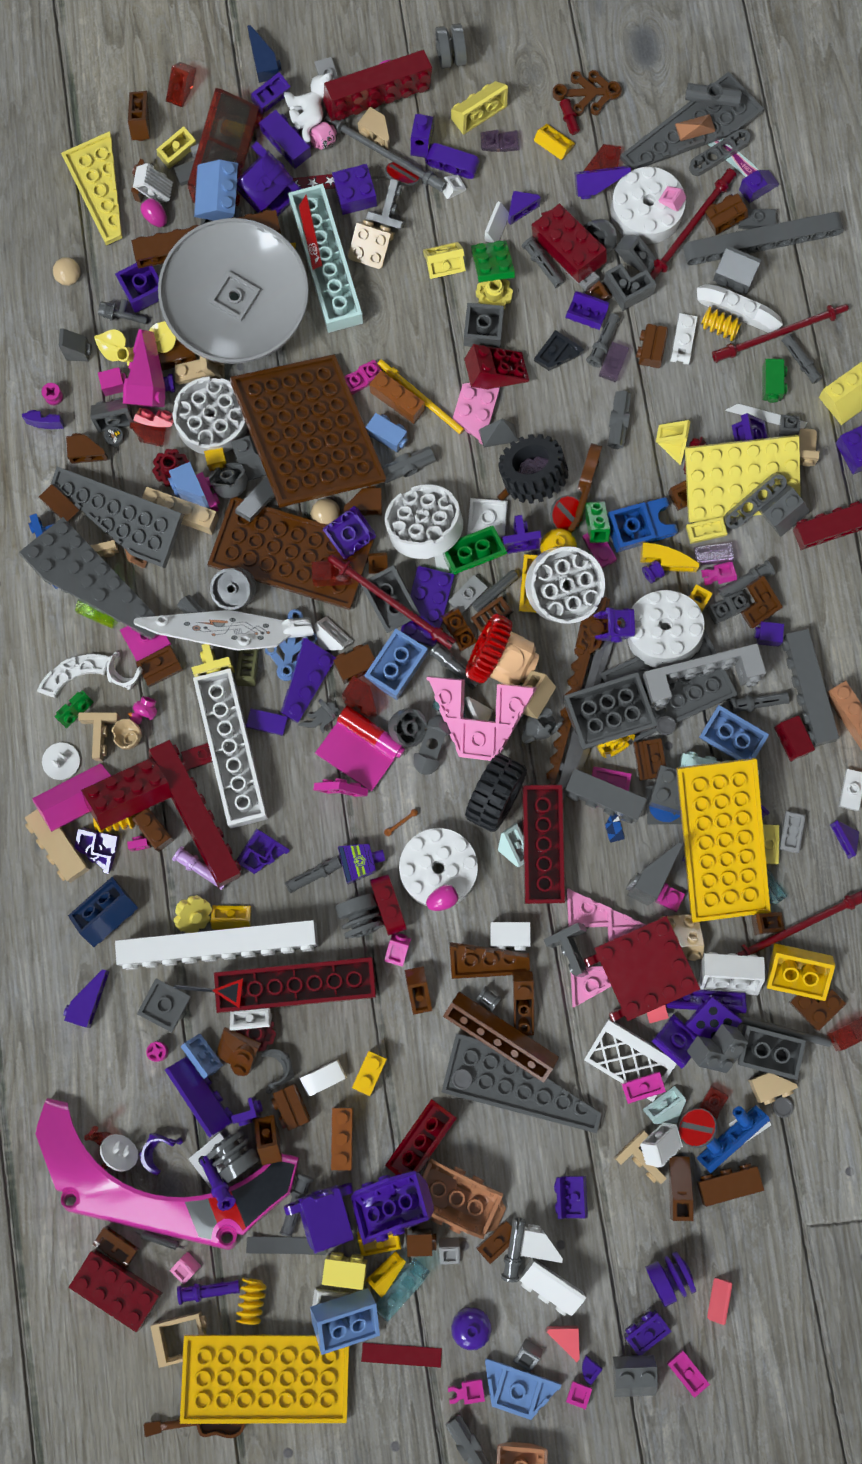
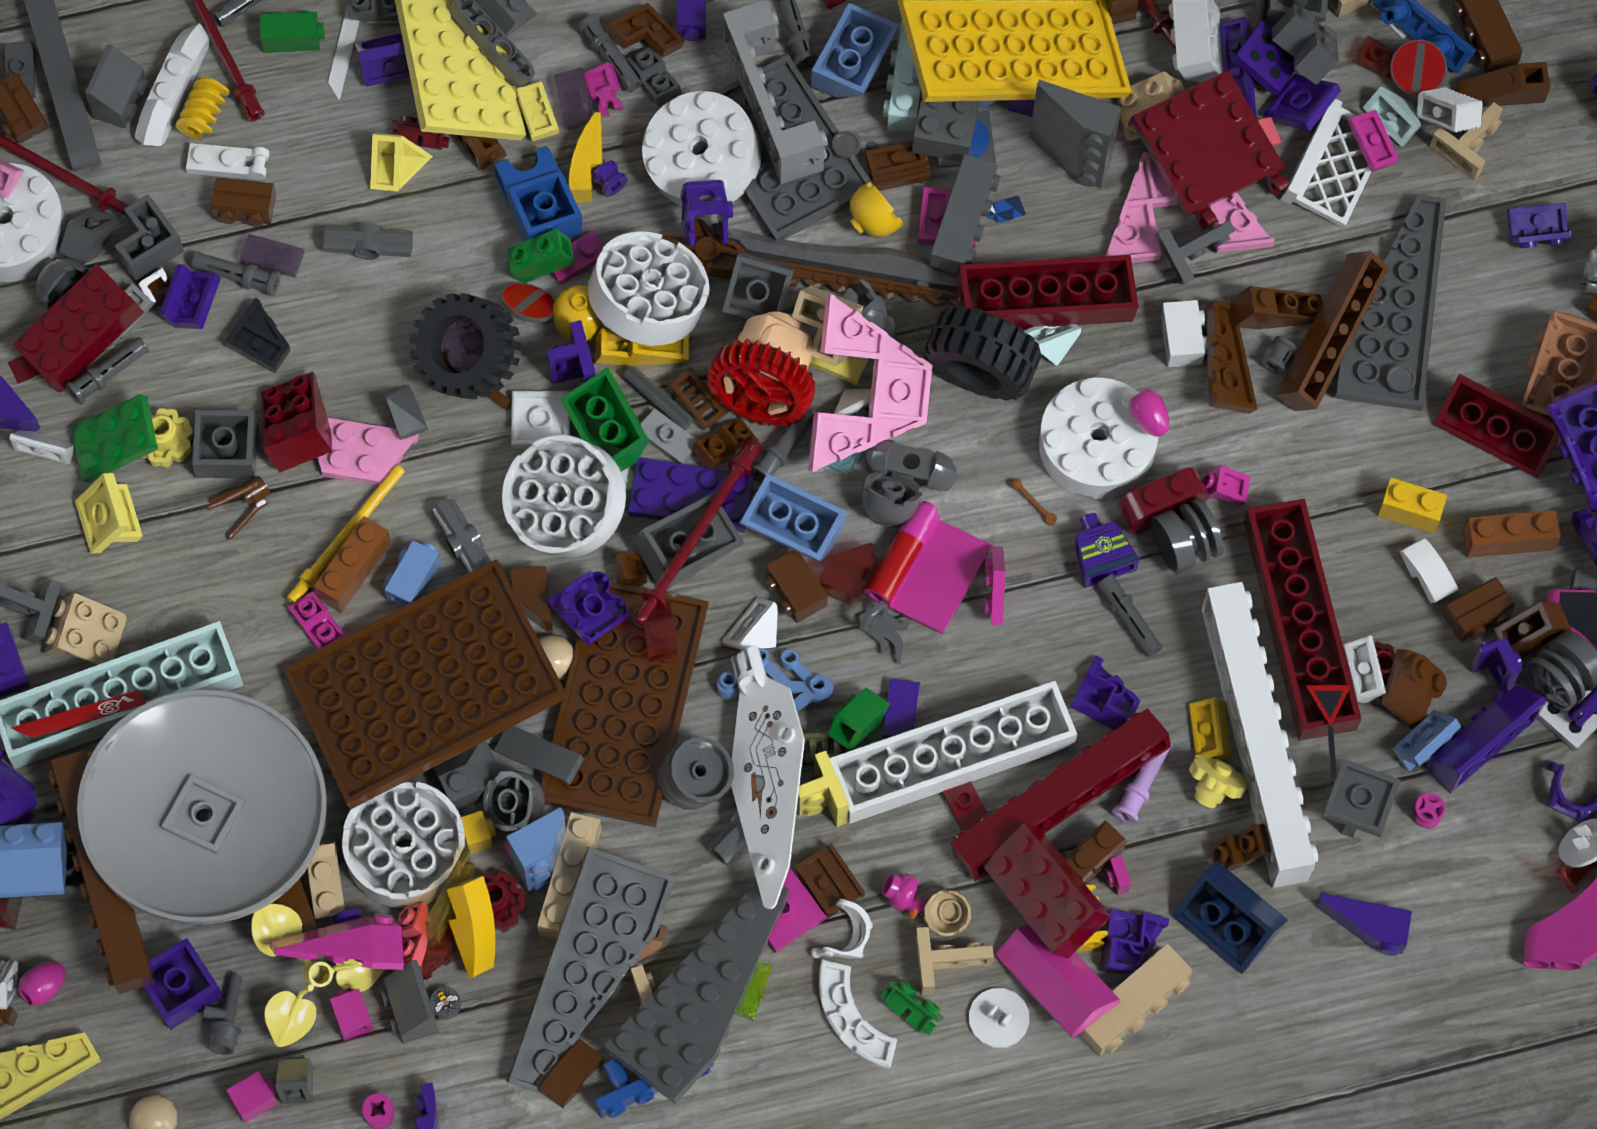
camera: 100 degrees left, 10 degrees down
(69, 321) = (253, 1096): none -> dark pink brick
(82, 449) = (473, 1045): reddish brown slope -> none
(143, 922) = (1243, 848): none -> reddish brown slope
(151, 449) = (473, 925): none -> yellow slope
(171, 437) = (442, 911): none -> clear yellow piece
(258, 691) = (858, 718): none -> green brick
(284, 1059) = (1423, 623): dark grey helmet -> none
(308, 675) = (819, 651): dark purple wing -> none
(418, 990) = (1280, 451): reddish brown slope -> none
(453, 341) = (252, 492): none -> reddish brown plant
(561, 655) = (757, 286): none -> dark grey brick
(585, 482) = (451, 272): reddish brown piece -> none
(609, 711) = (840, 211): dark grey slope -> none
(701, 593) = (643, 106): yellow plate -> none

